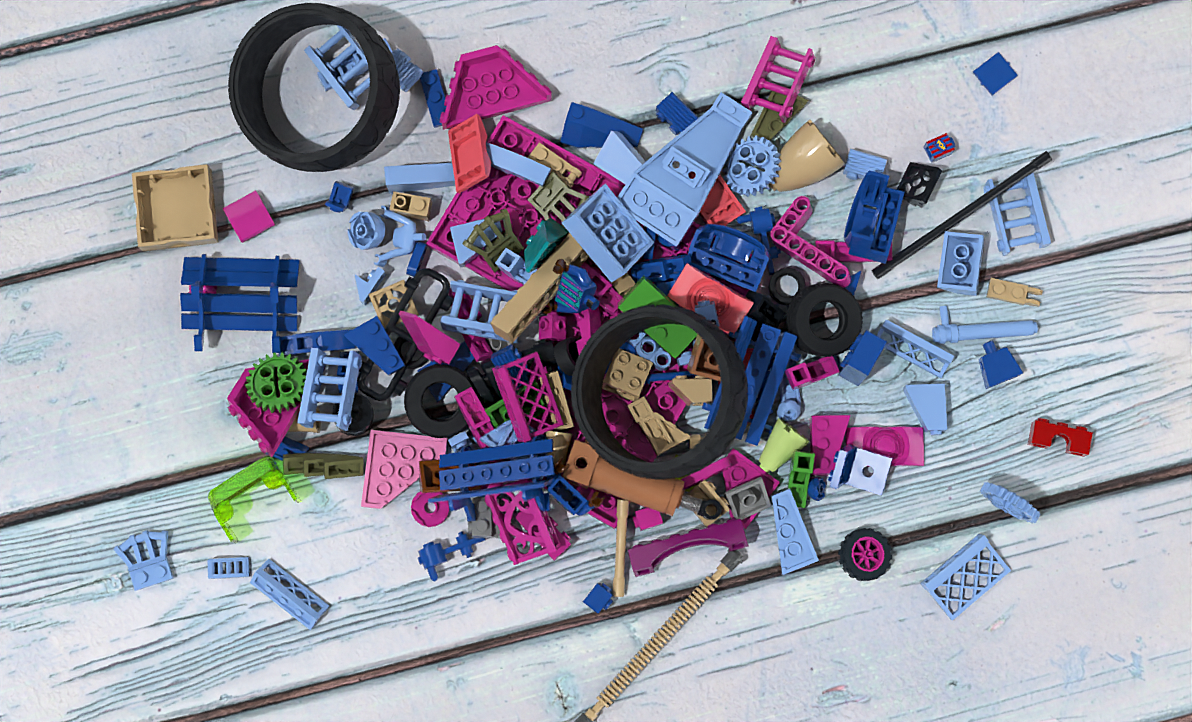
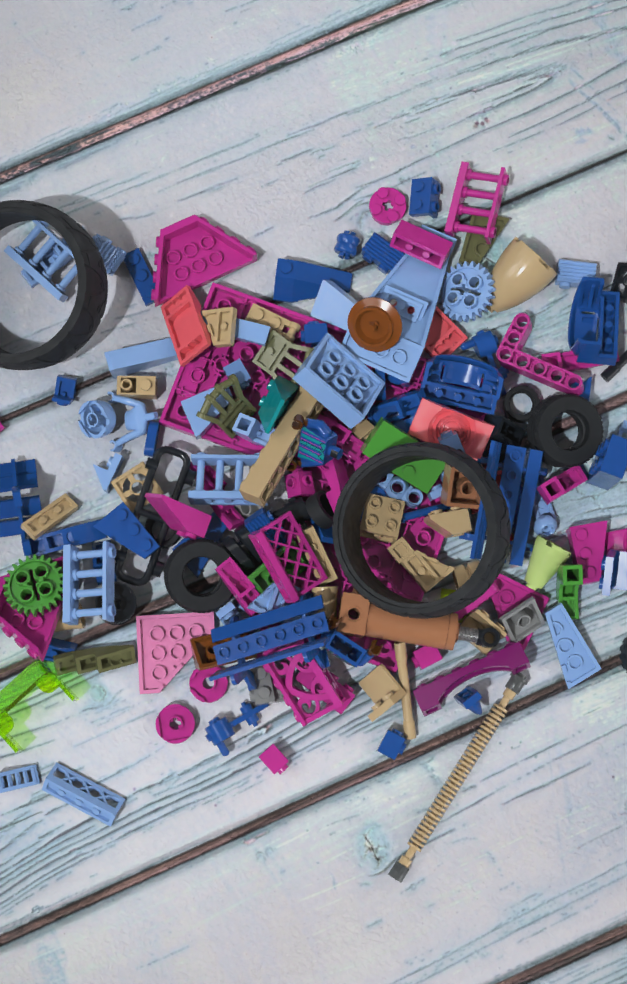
camera: 15 degrees left, 0 degrees up
(303, 318) = (49, 516): none -> tan plate
(382, 534) = (166, 717): none -> dark pink plate
(481, 593) = (274, 759): none -> dark pink brick
(503, 159) = (221, 325): none -> tan wing
(513, 208) = (240, 371): none -> medium blue brick
(592, 181) = (313, 333): none -> blue brick
(598, 544) = (382, 690): none -> tan bracket
(642, 100) = (346, 245): none -> blue piece
(652, 183) = (374, 324): none -> dark orange piece
(682, 567) = (469, 699): none -> blue tile
(690, 78) = (391, 196): none -> dark pink plate
(715, 111) = (421, 244): none -> dark pink brick
(728, 65) = (425, 197): none -> blue bracket
(816, 488) = (585, 598): blue plate -> none

